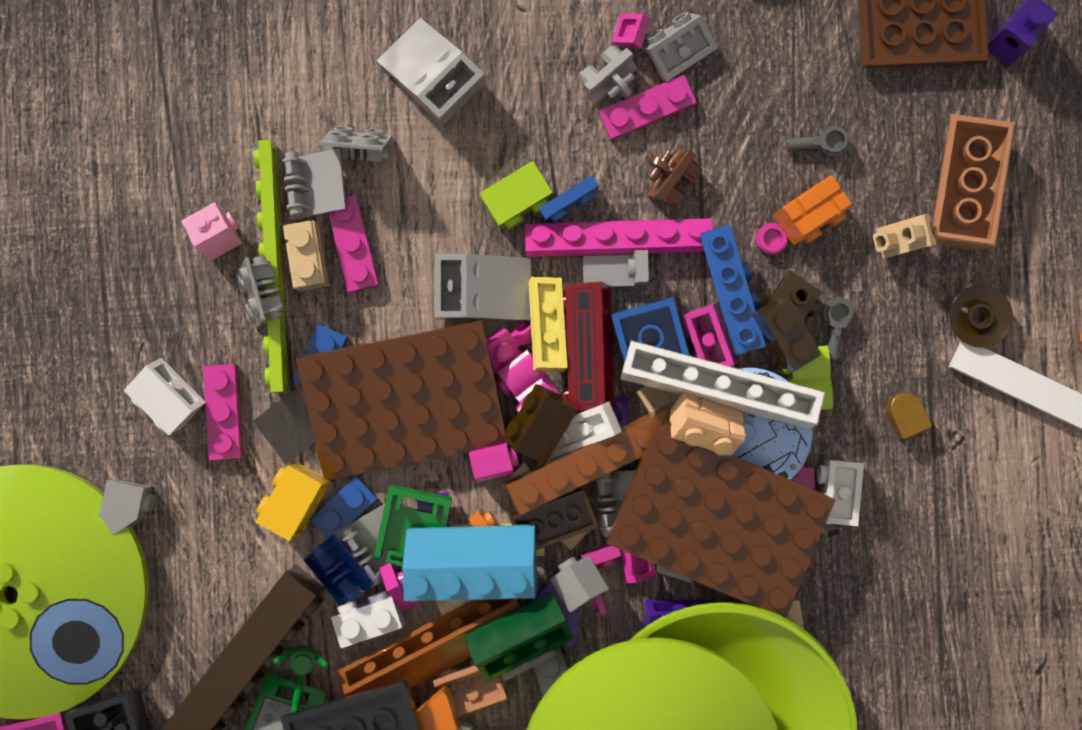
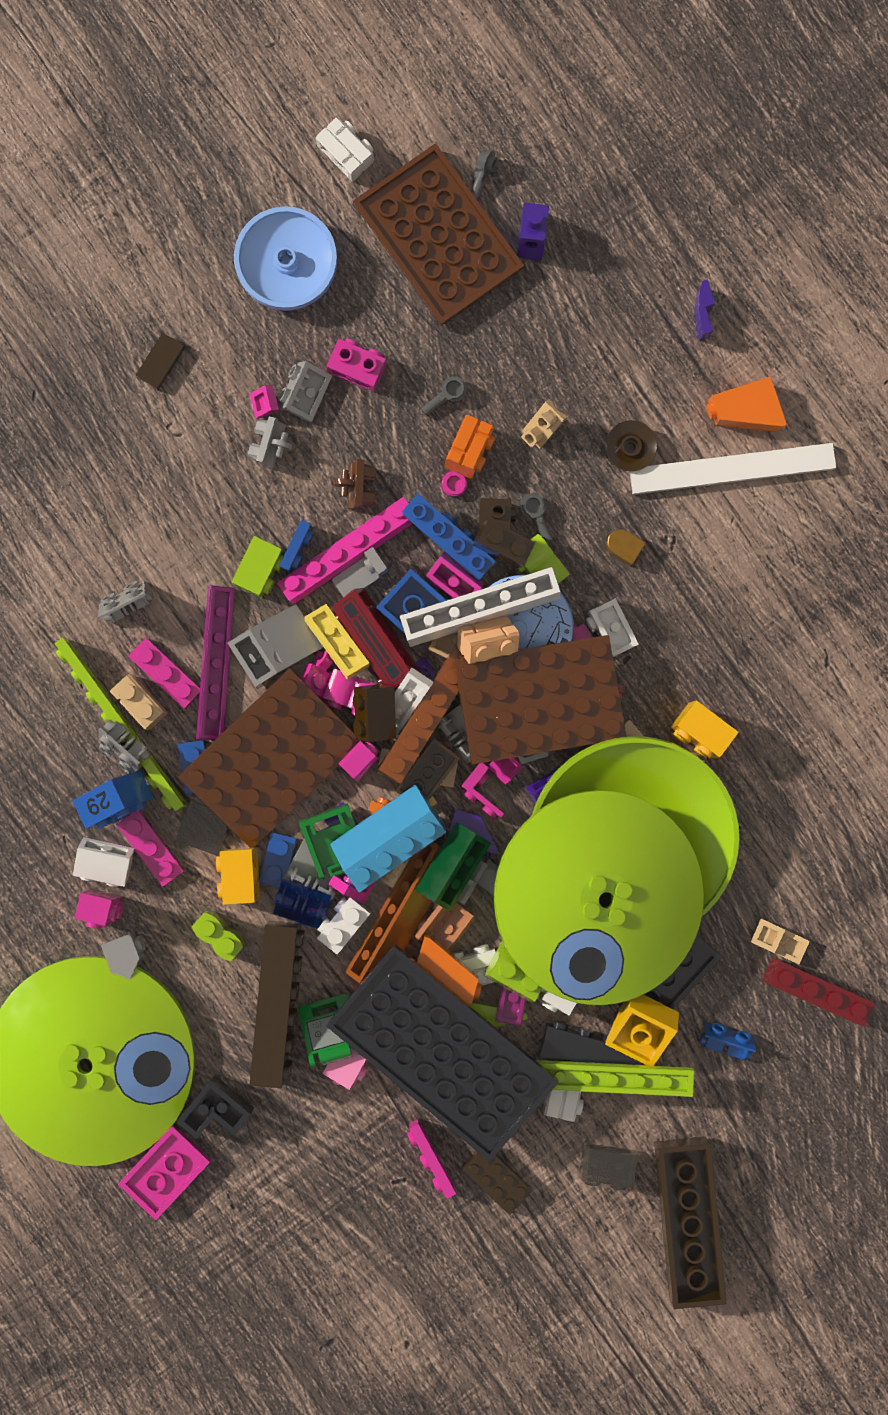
camera: 35 degrees left, 0 degrees up
(128, 441) = (99, 908): none -> dark pink brick
(212, 231) = (63, 726): bright pink head -> none
(213, 341) = (113, 800): none -> blue brick
(236, 556) = (214, 930): none -> lime brick
(301, 663) = (317, 983): green plant -> none
(314, 183) = (112, 648): light grey hinge -> none
(410, 265) = (215, 662): none -> magenta tile
(432, 71) = (144, 518): slope -> none
(578, 583) = (471, 804): light grey brick -> none
(647, 107) = (310, 448): dark pink plate -> none
(750, 52) = (357, 364): none -> dark pink brick
(870, 661) = (703, 730): none -> yellow brick
(972, 182) = (565, 357): nougat brick -> none

